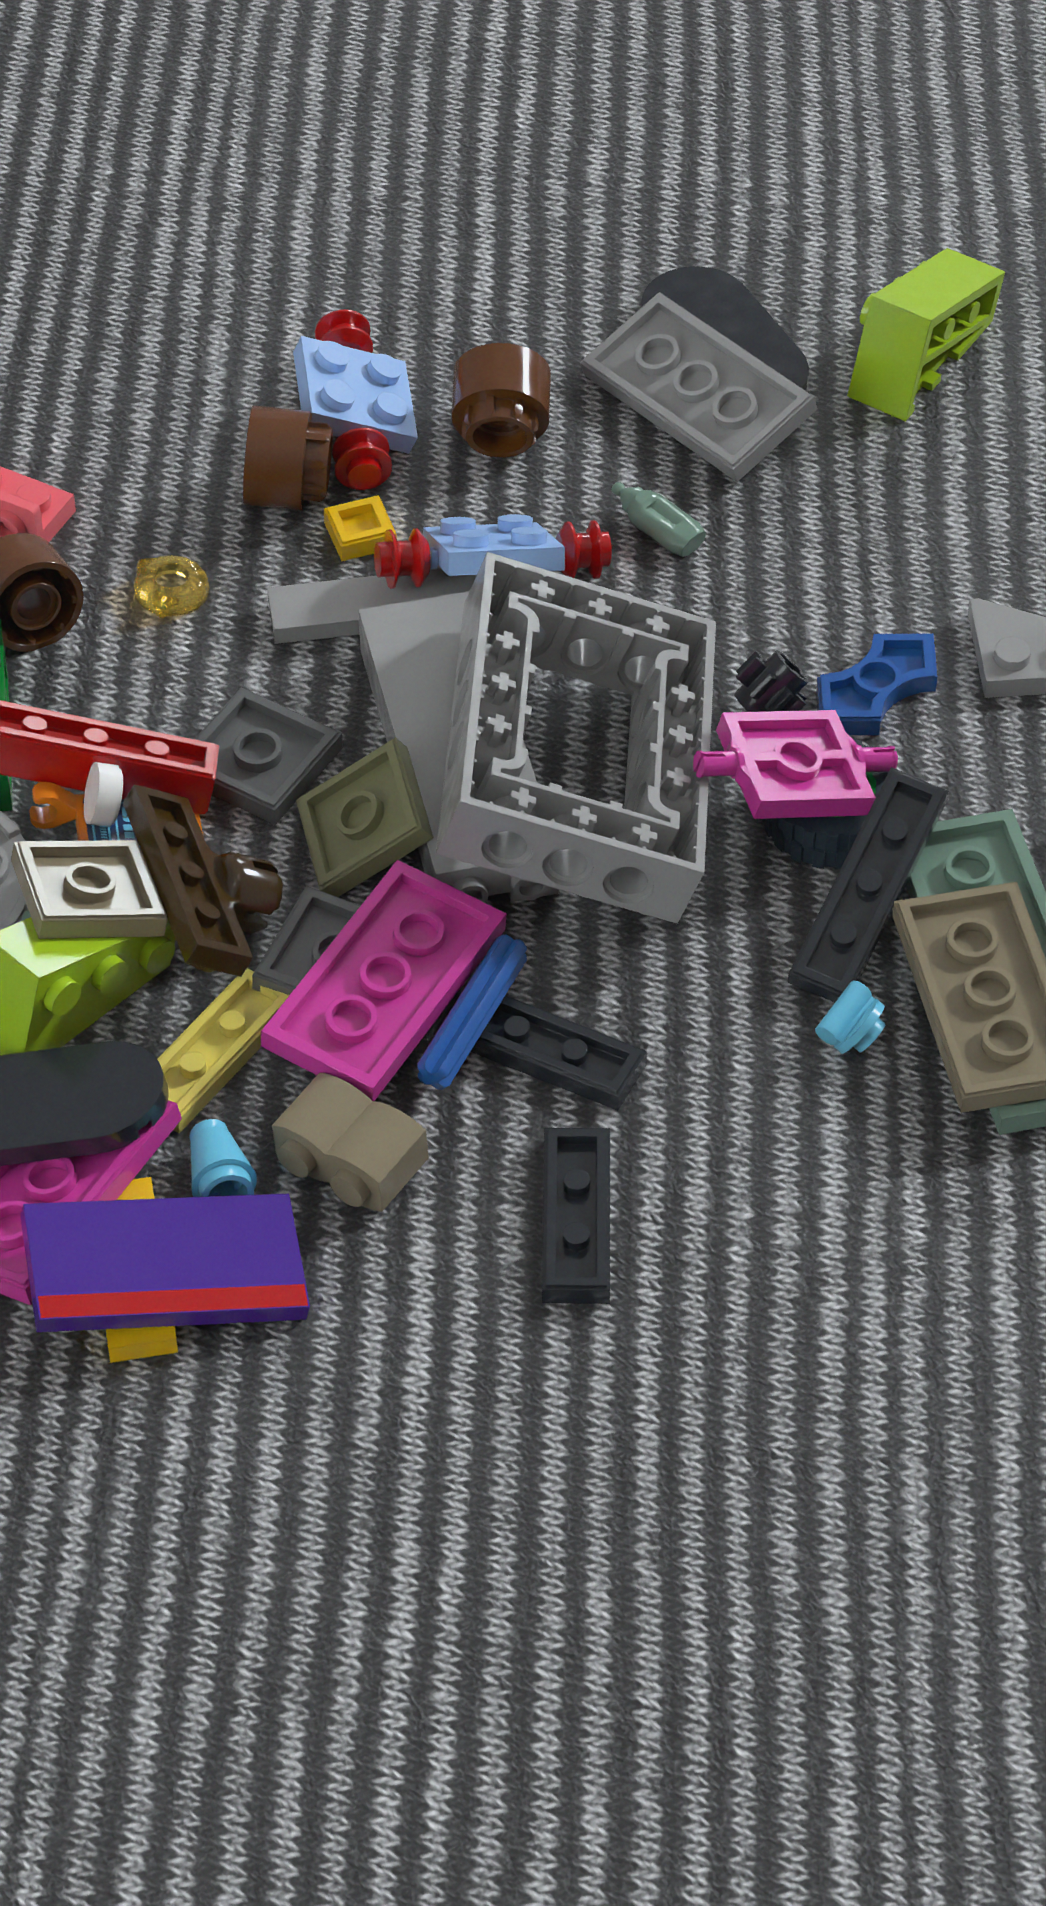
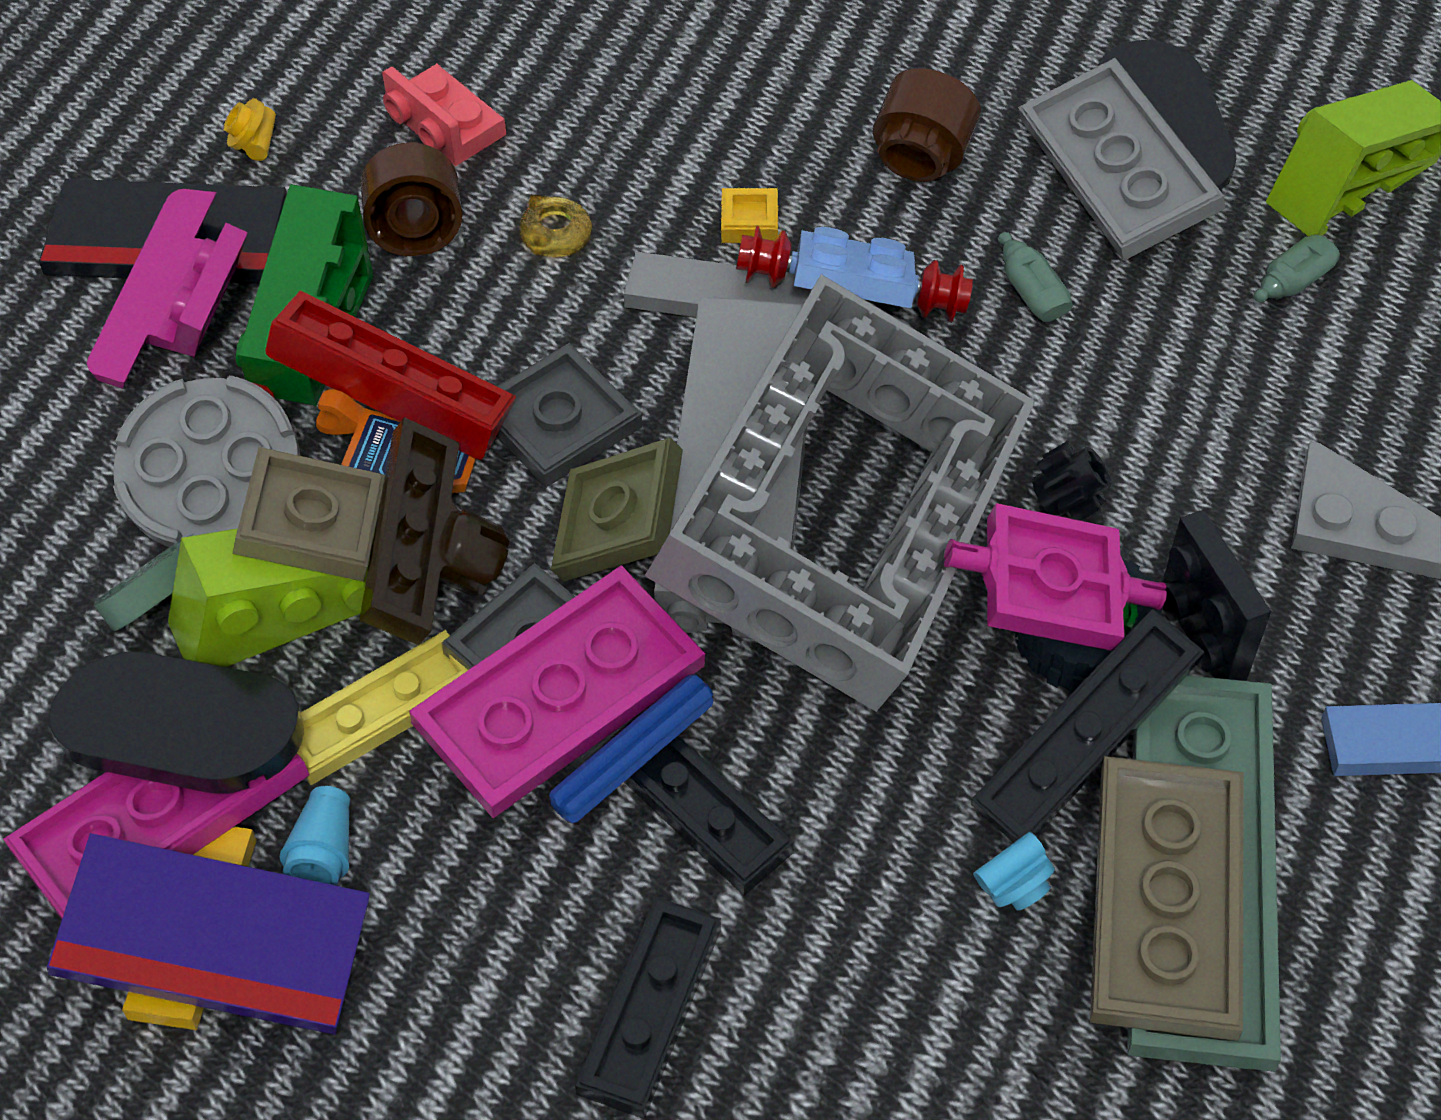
camera: 20 degrees right, 5 degrees up
(103, 794) = (379, 418): white tile -> none
(286, 458) = (699, 131): reddish brown piece -> none
(350, 1142) = (454, 854): dark tan brick -> none
(358, 395) = (792, 91): light blue plate -> none
(889, 672) = (1151, 511): blue tile -> none
(901, 449) = (1298, 268): none -> sand green piece
(940, 745) = (1214, 599): none -> black plate

